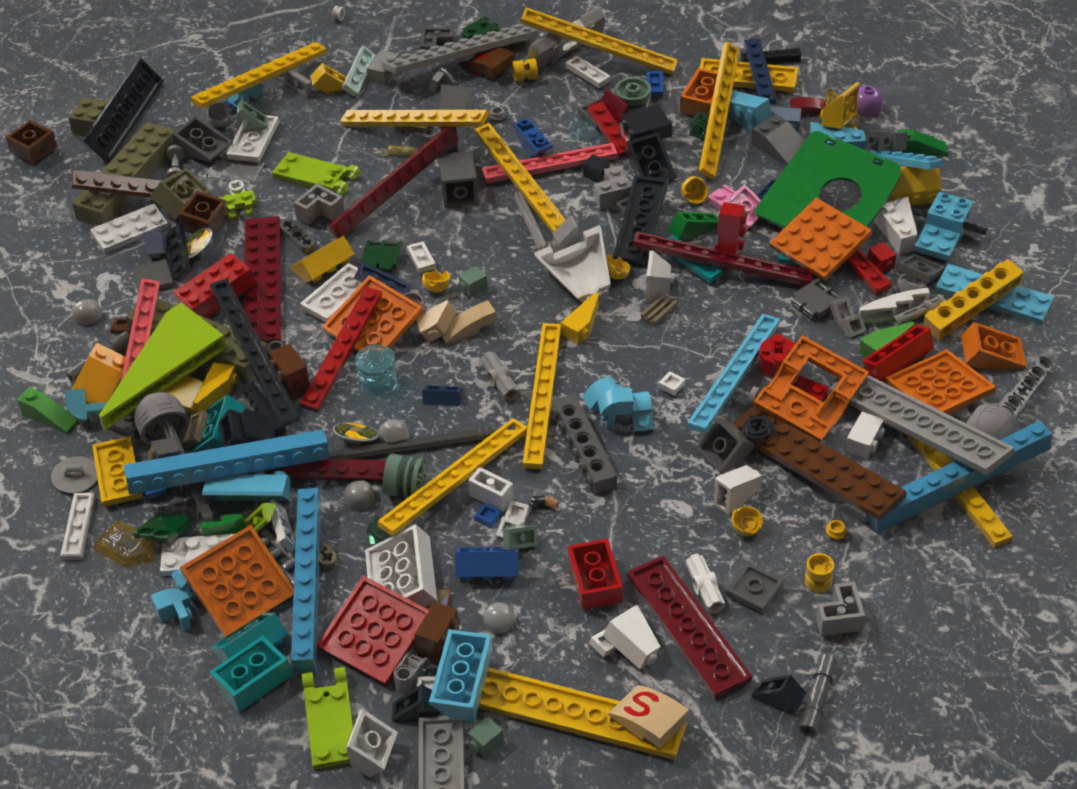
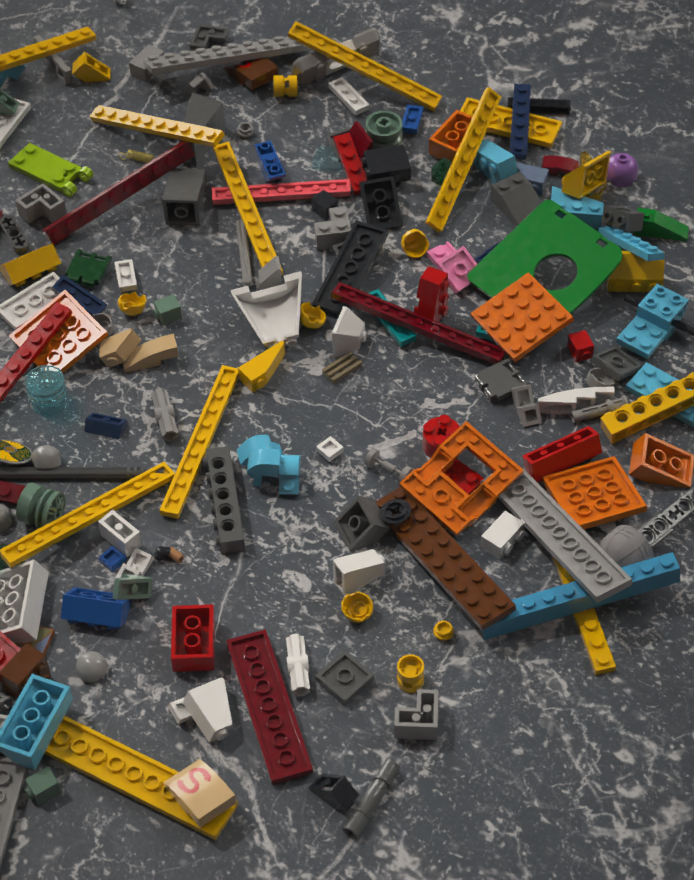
camera: 10 degrees right, 5 degrees up
(358, 71) = (121, 64): light aqua plate -> none
(479, 27) = (255, 32): dark green plate -> none
(692, 224) = (398, 281): green slope -> none
(732, 375) = (389, 450): medium azure plate -> none
(868, 272) = (562, 359): red plate -> none
(881, 337) = (551, 433): bright green slope -> none
(898, 225) = (607, 311): white wedge -> none

